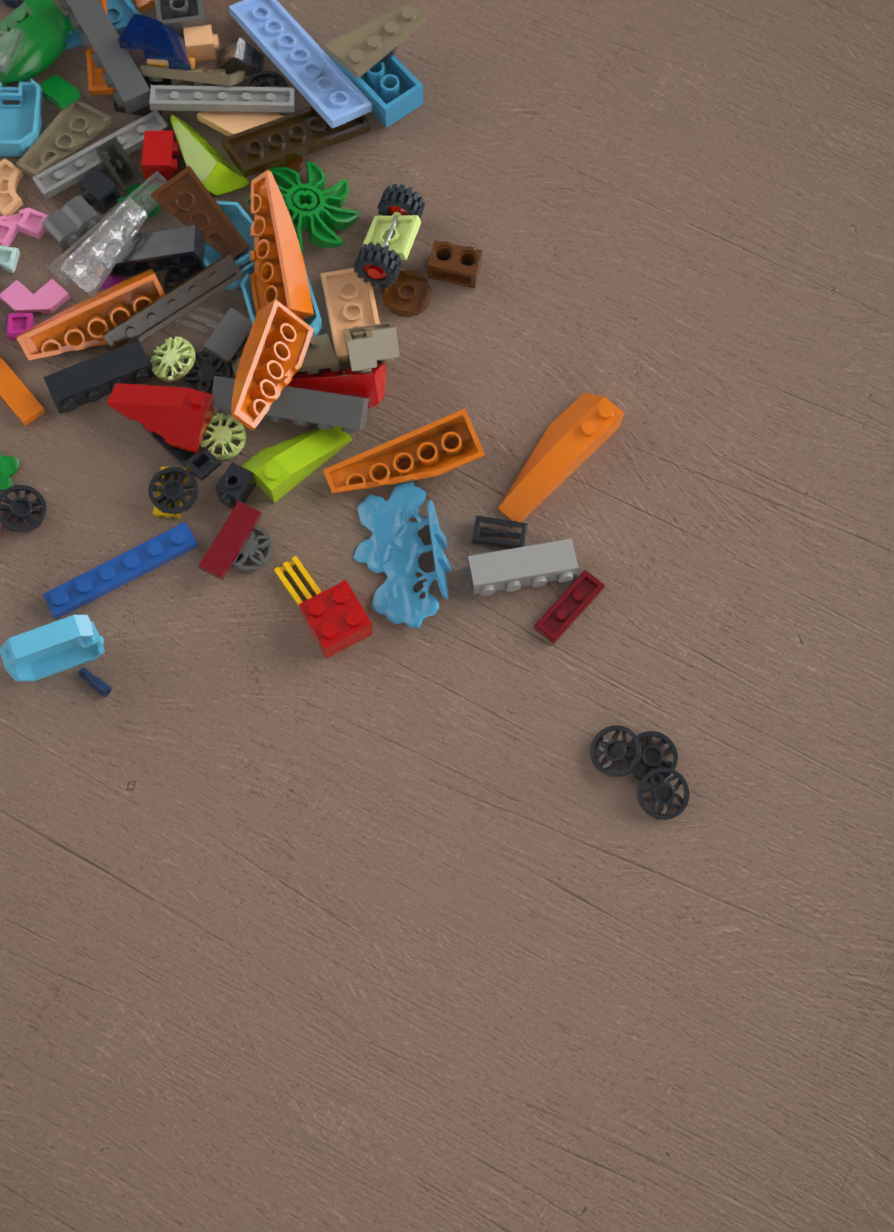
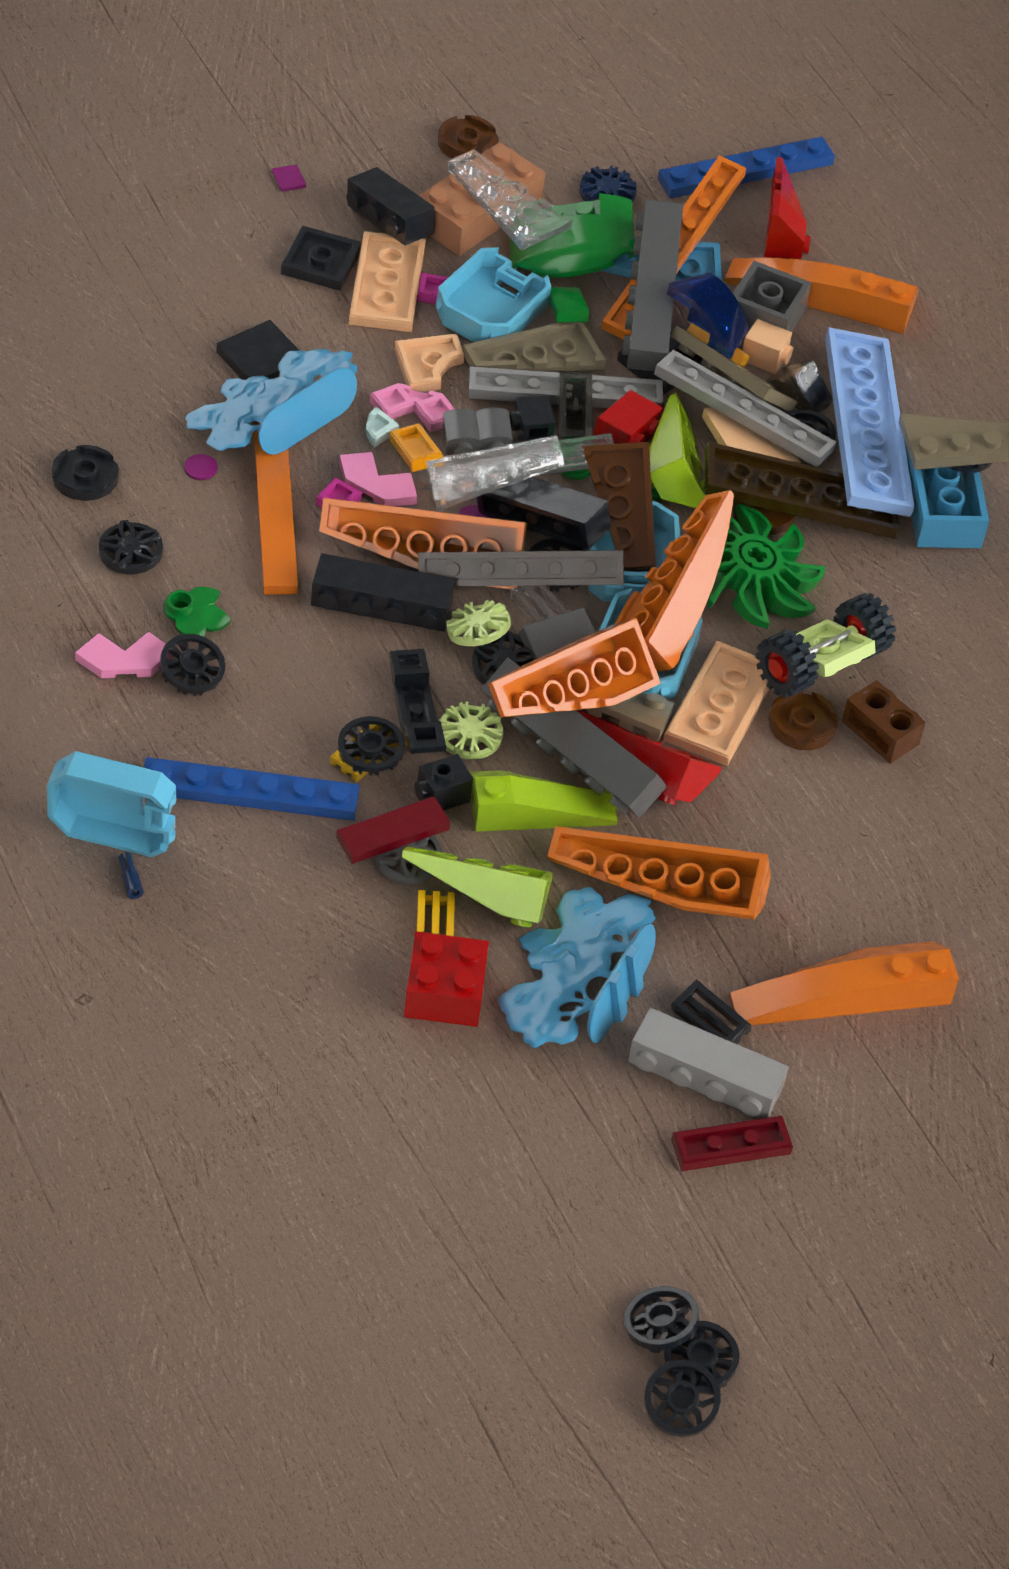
camera: 30 degrees right, 20 degrees down
(41, 258) = (414, 446): none -> light orange tile
(171, 412) = (433, 668): red wedge -> none
(326, 532) = (509, 891): none -> lime wedge
(369, 344) = (711, 733): dark tan brick -> none

